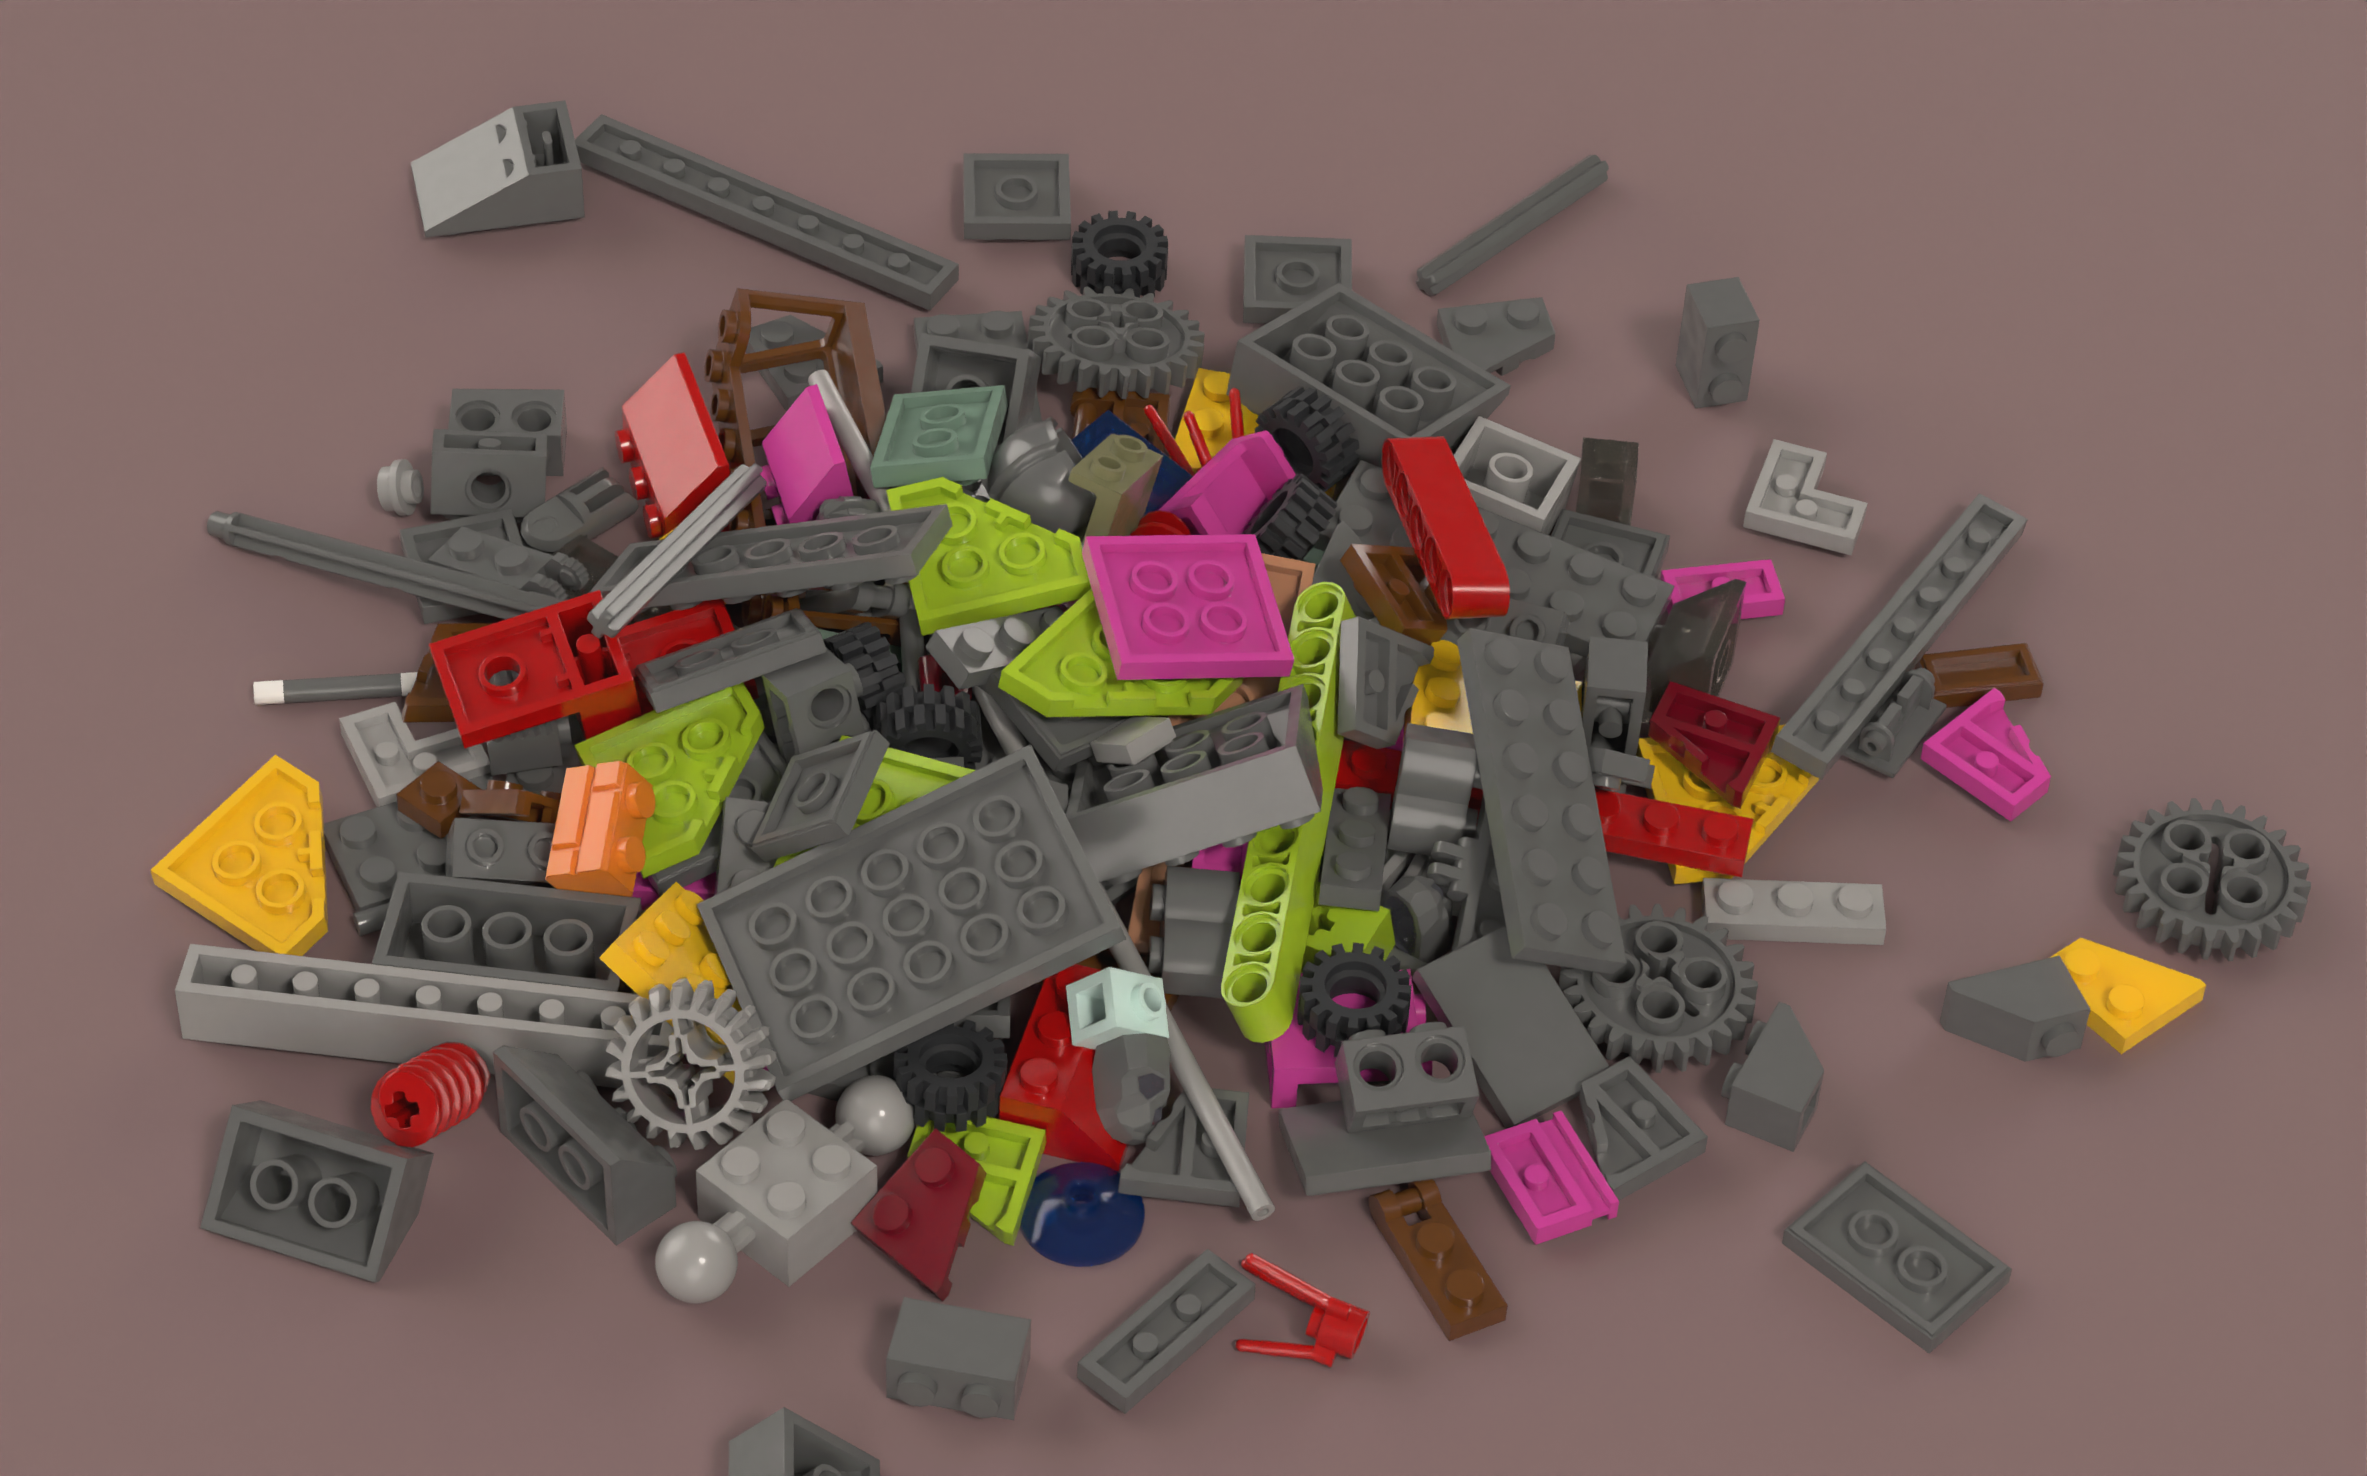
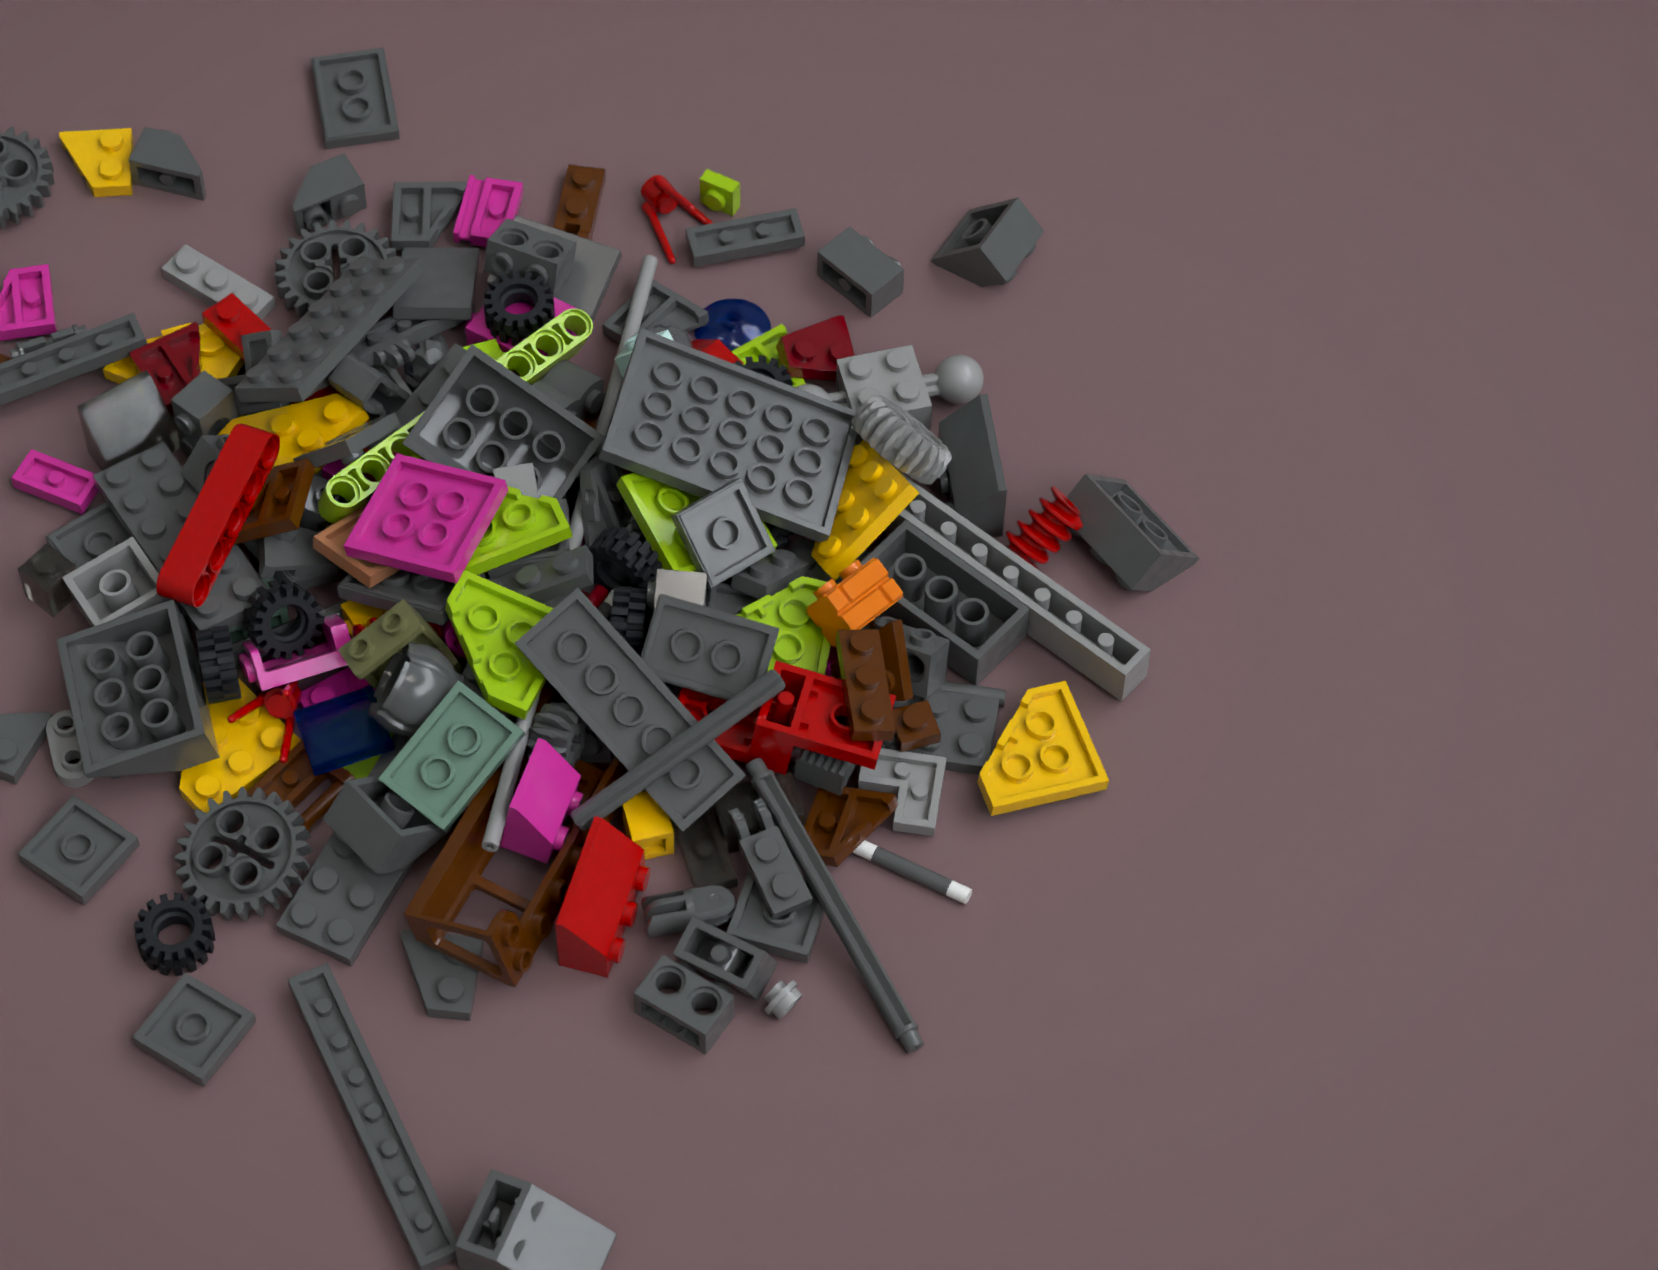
camera: 145 degrees left, 10 degrees up
(503, 709) = (865, 685): none -> reddish brown plate
(1256, 1369) = (719, 192): none -> lime plate

